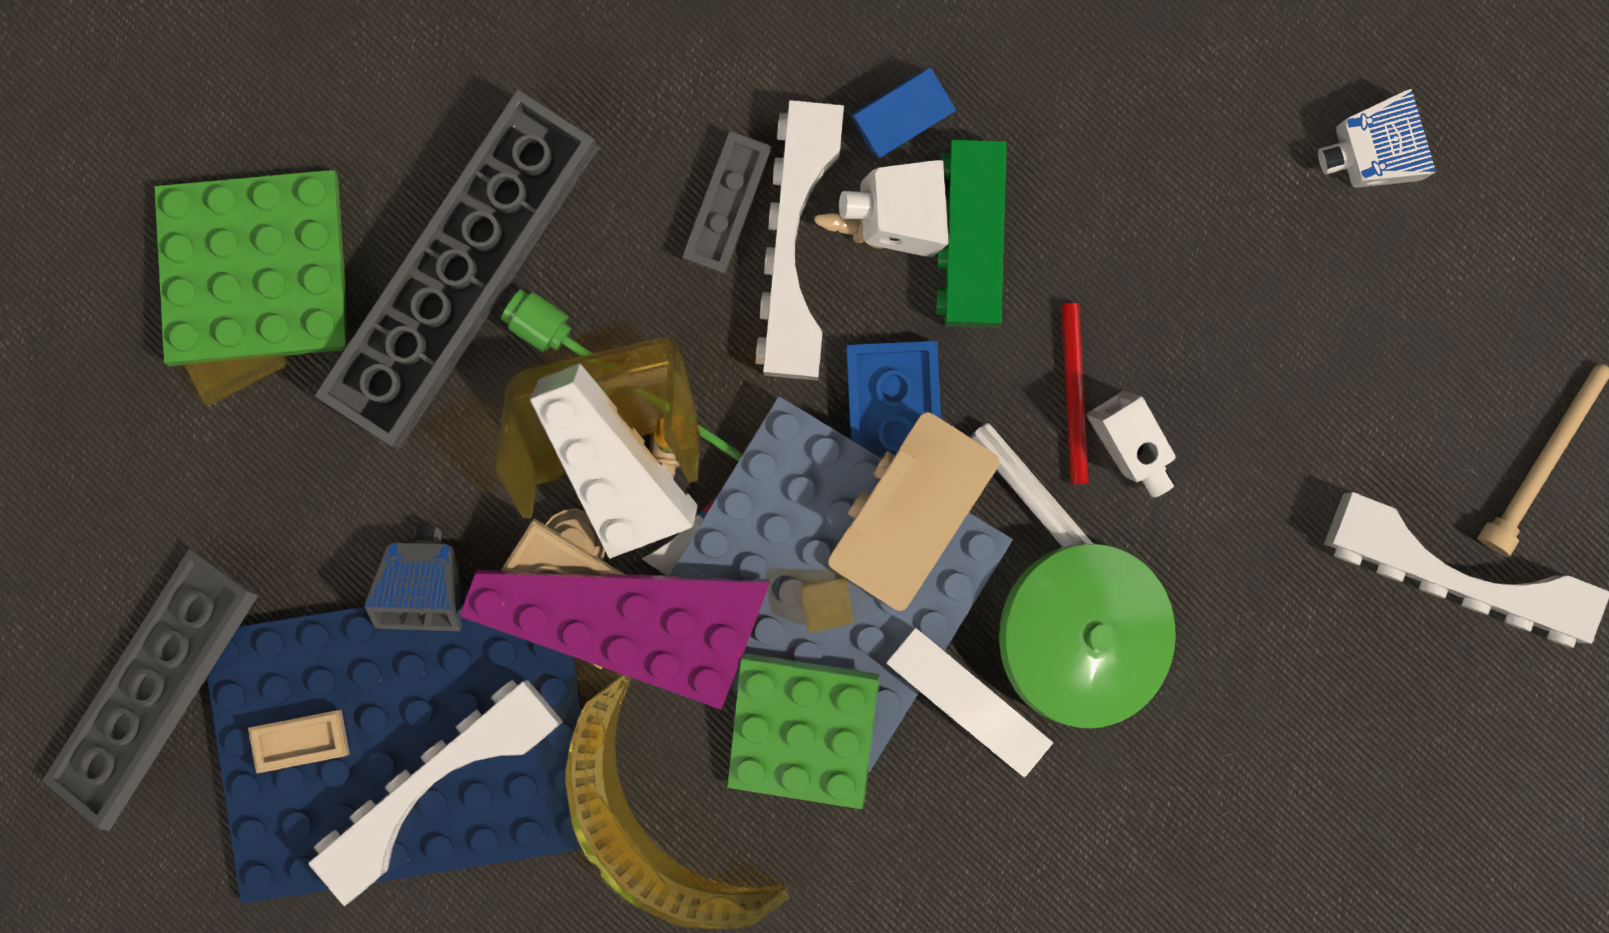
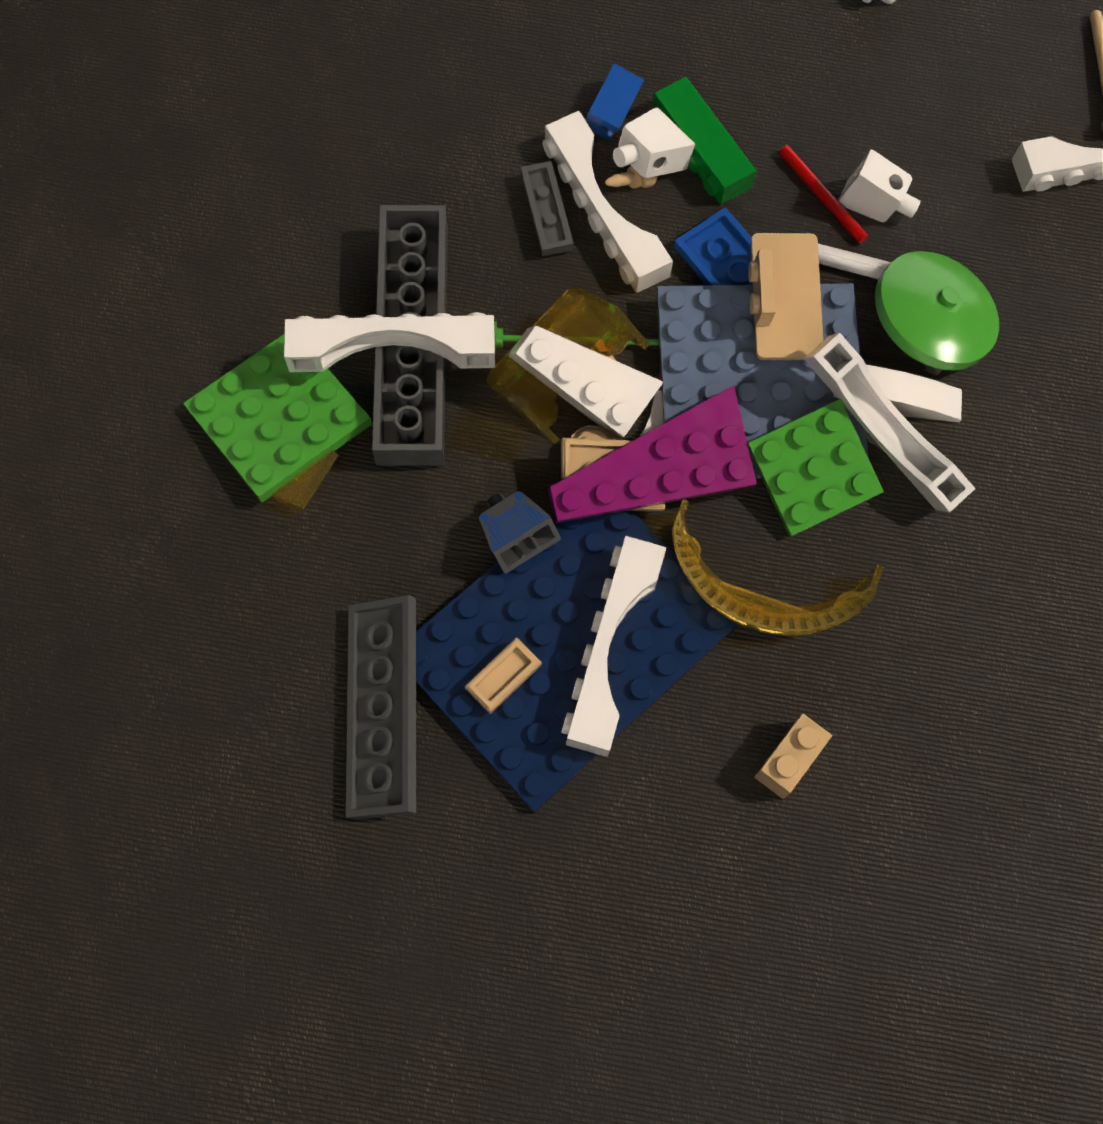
camera: 40 degrees left, 15 degrees down
(330, 235) = (320, 343): none -> white arch
(826, 605) = (773, 383): clear yellow slope -> none
(901, 684) = (920, 461): none -> white arch

